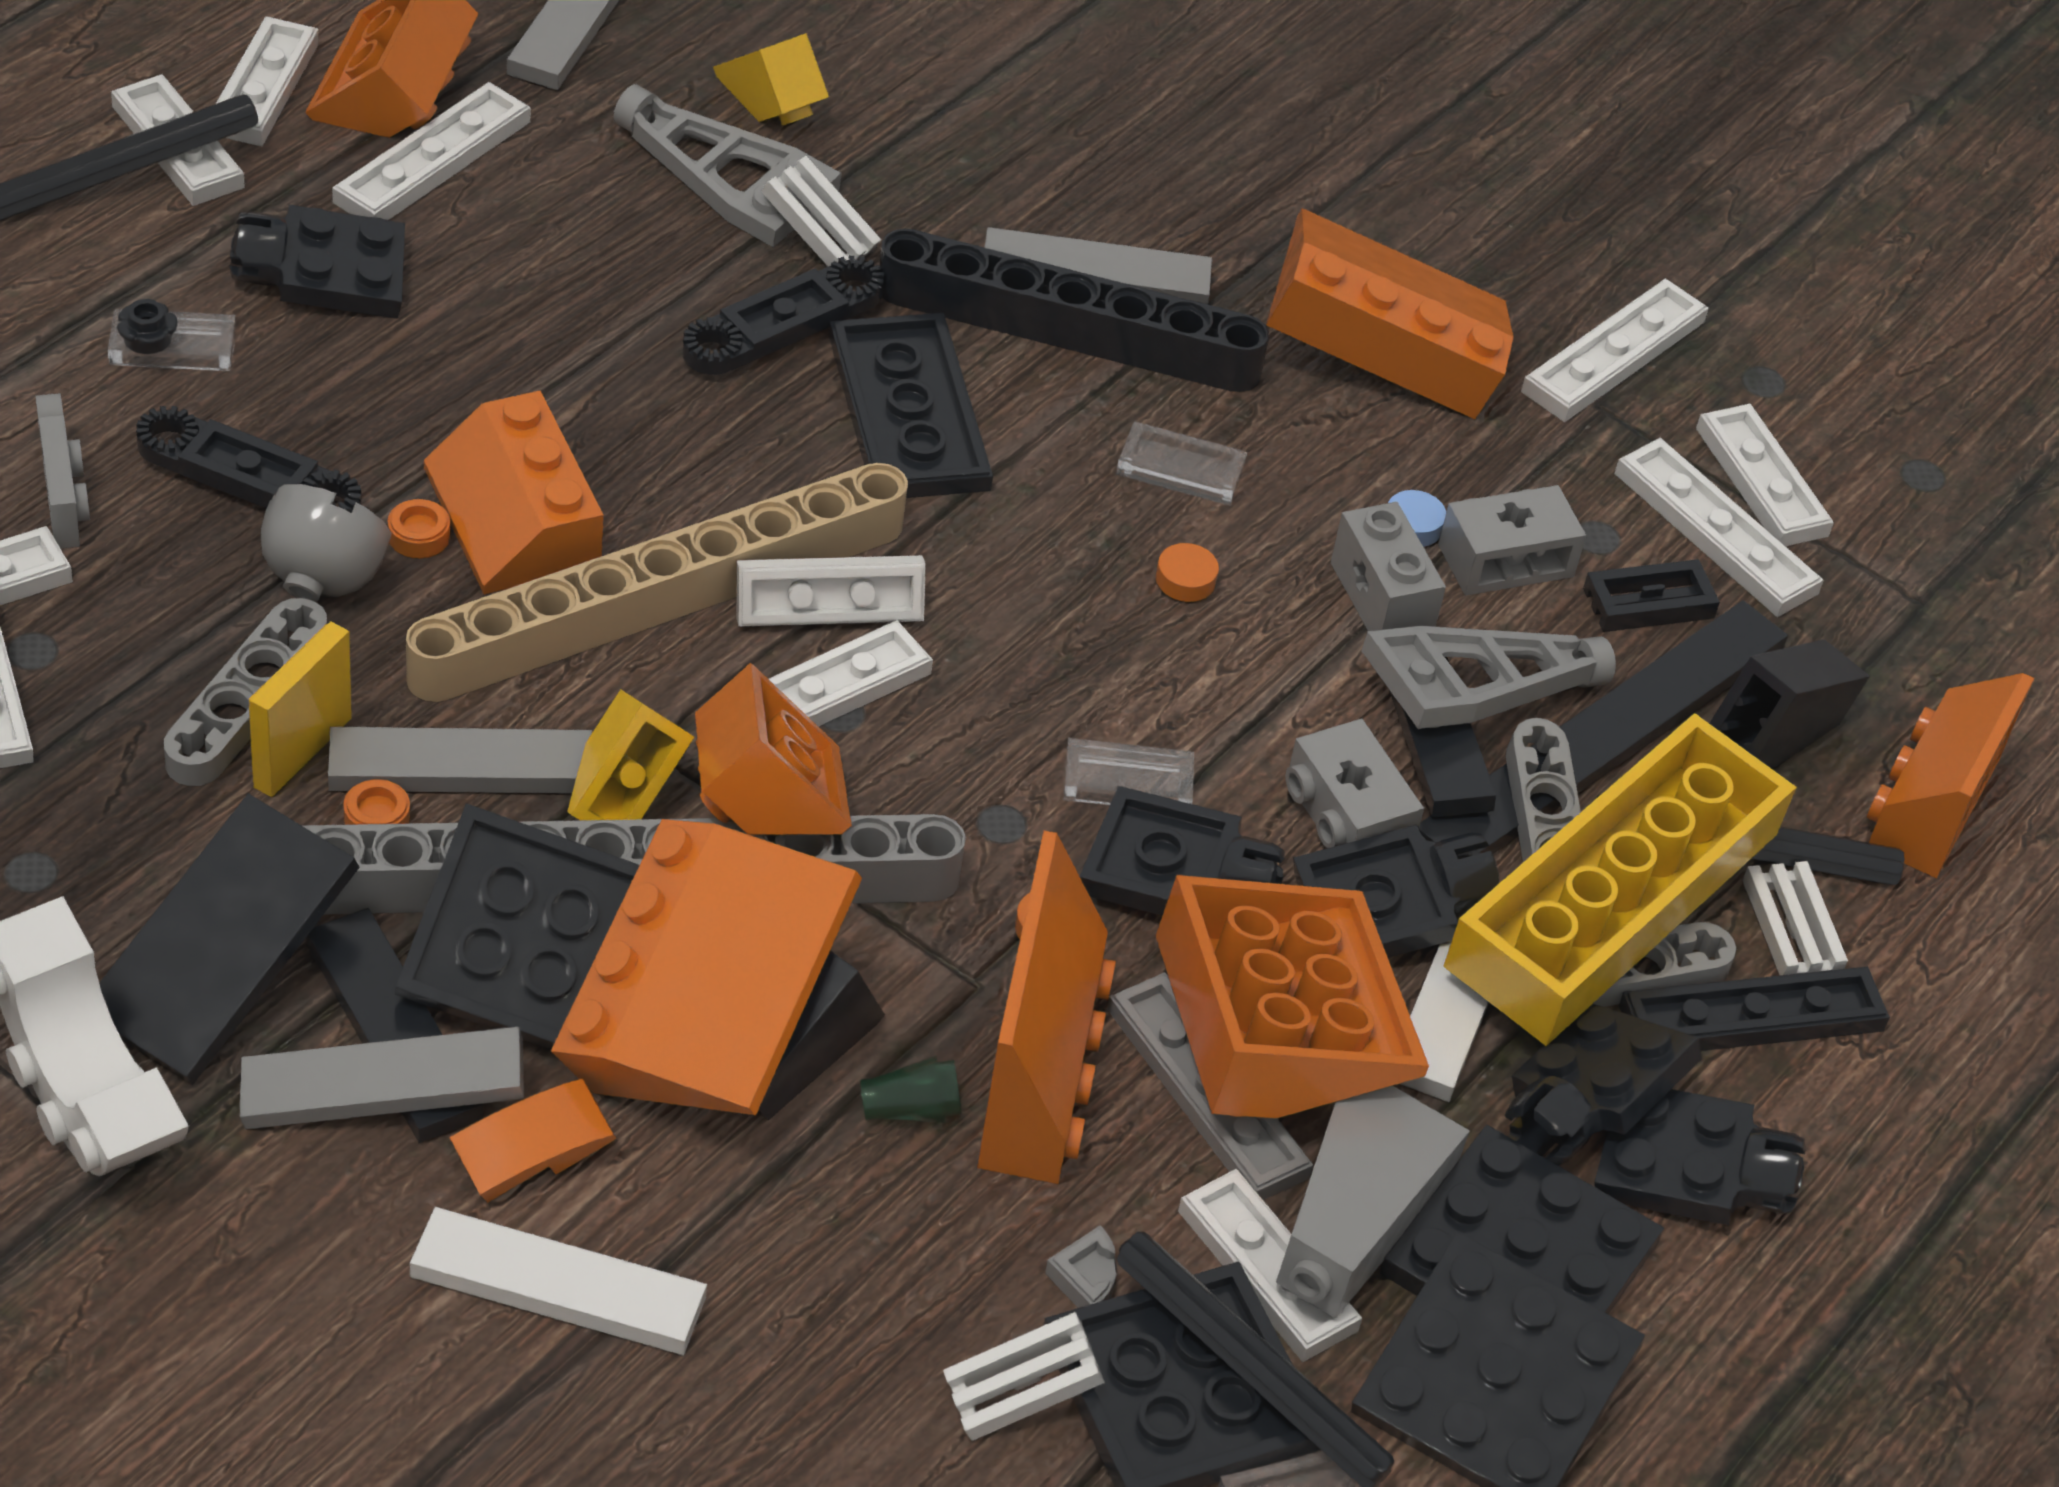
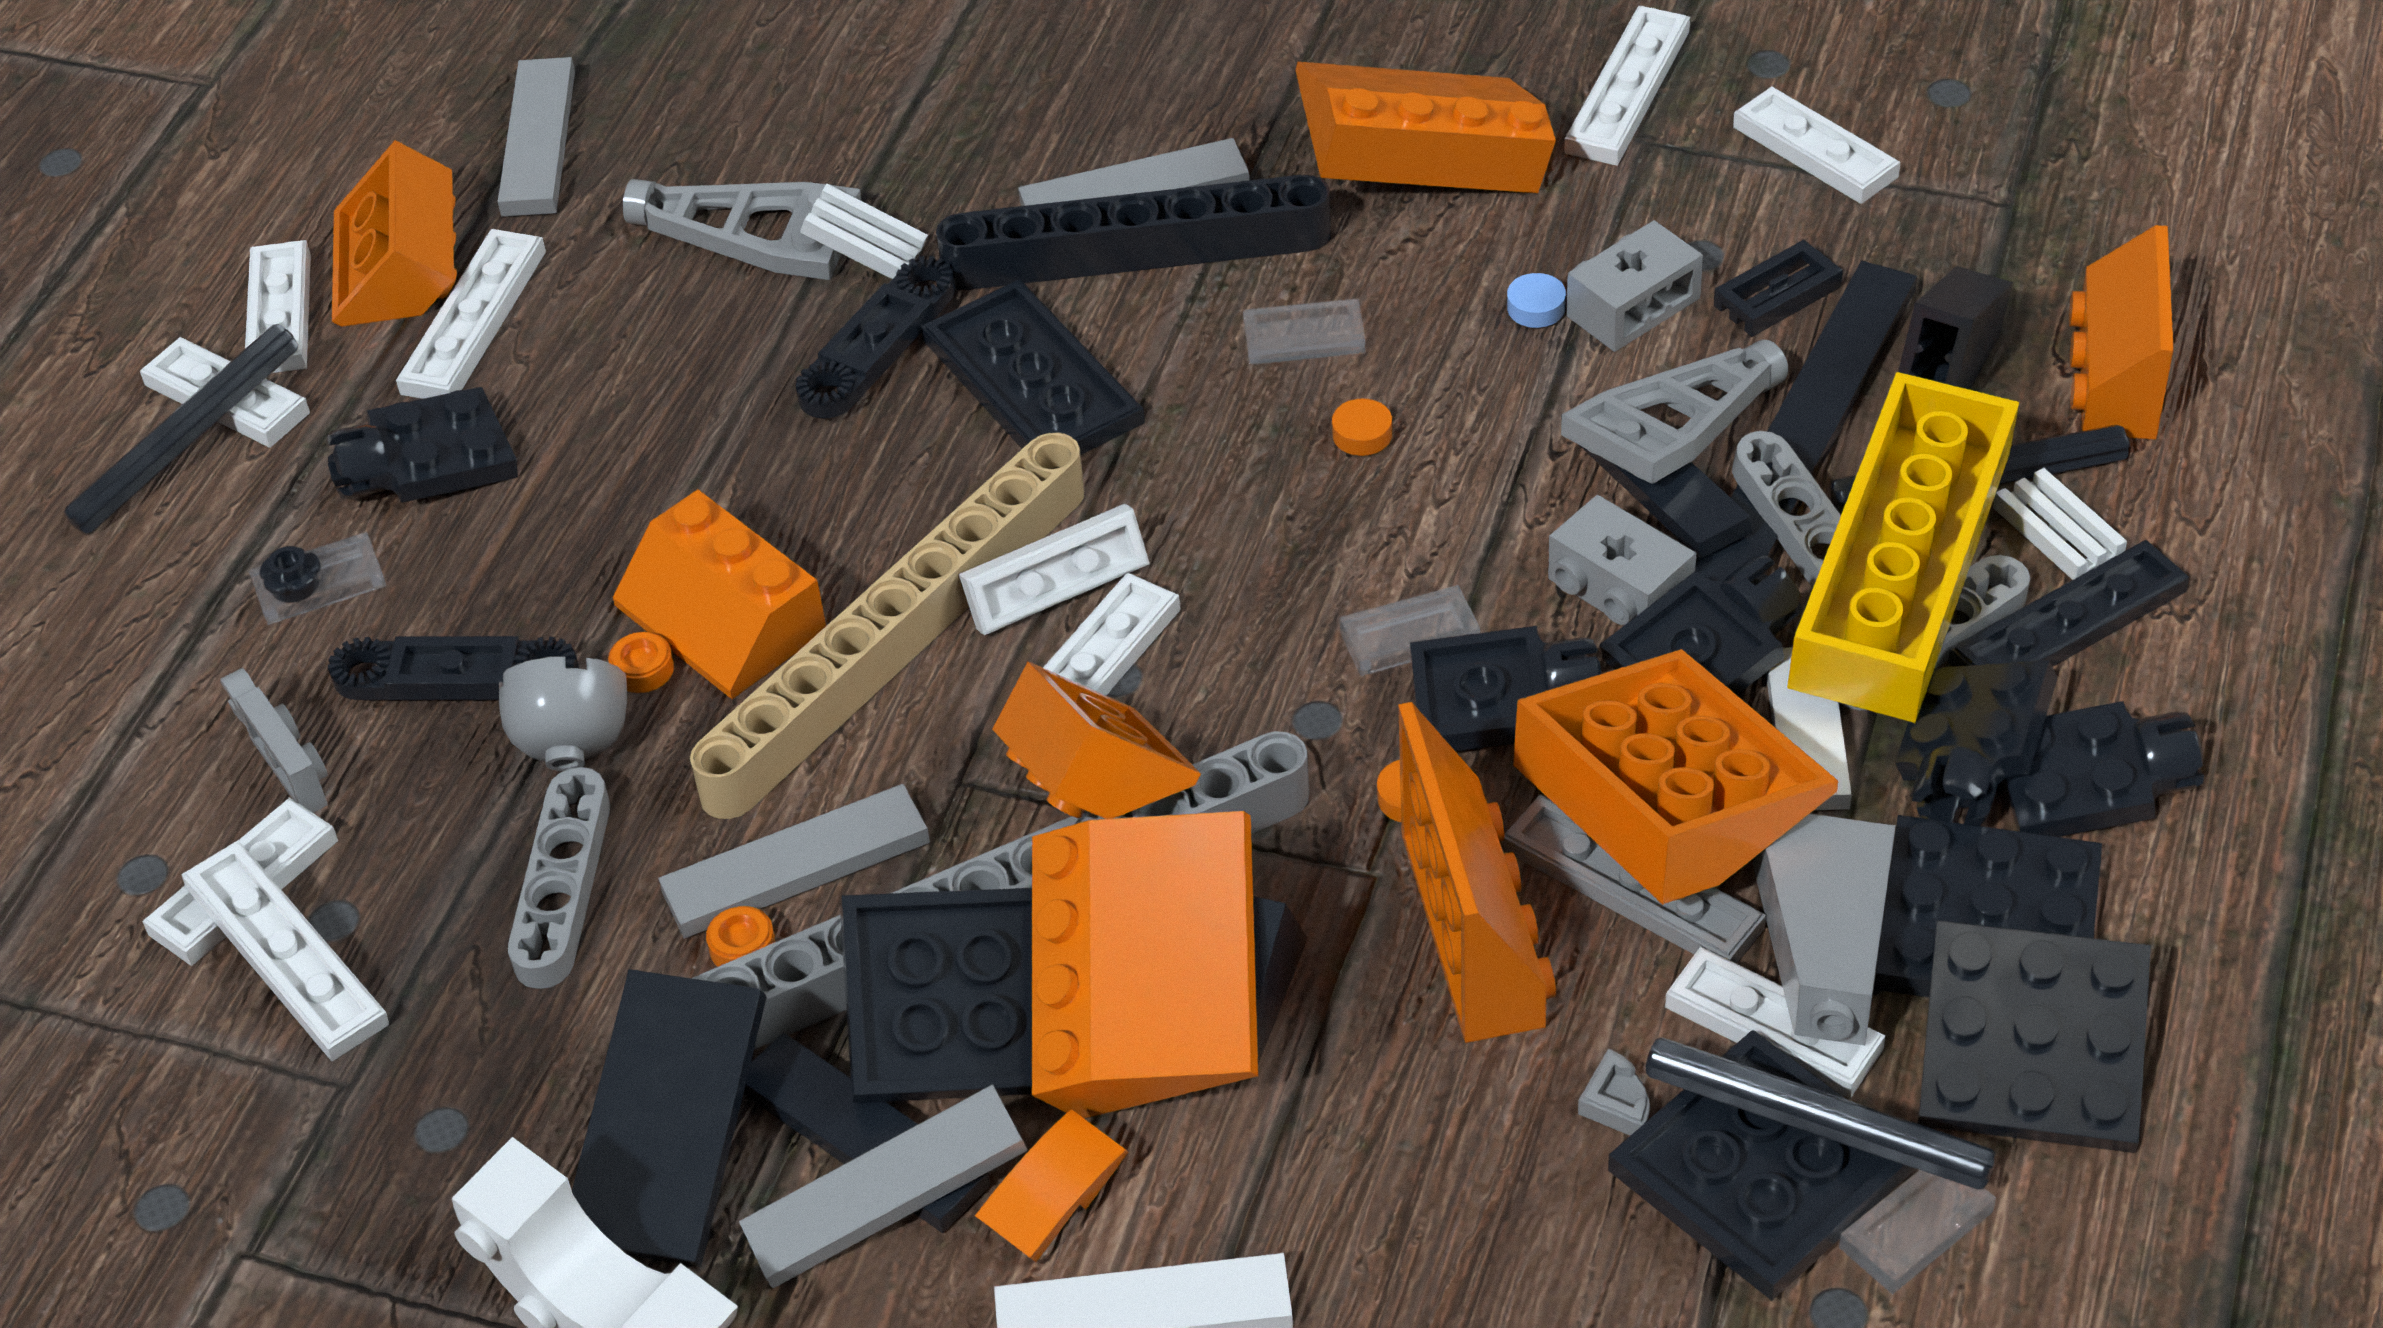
camera: 10 degrees left, 0 degrees up
(298, 707) = (627, 871): yellow tile -> none
(626, 761) = (955, 798): yellow slope -> none
(776, 80) = (756, 127): yellow slope -> none
(913, 1093) = (1377, 996): clear green cone -> none
(1017, 1366) = (1600, 1197): white tile -> none
(1386, 569) = (1542, 355): light grey brick -> none
(1719, 527) = (1802, 205): white tile -> none

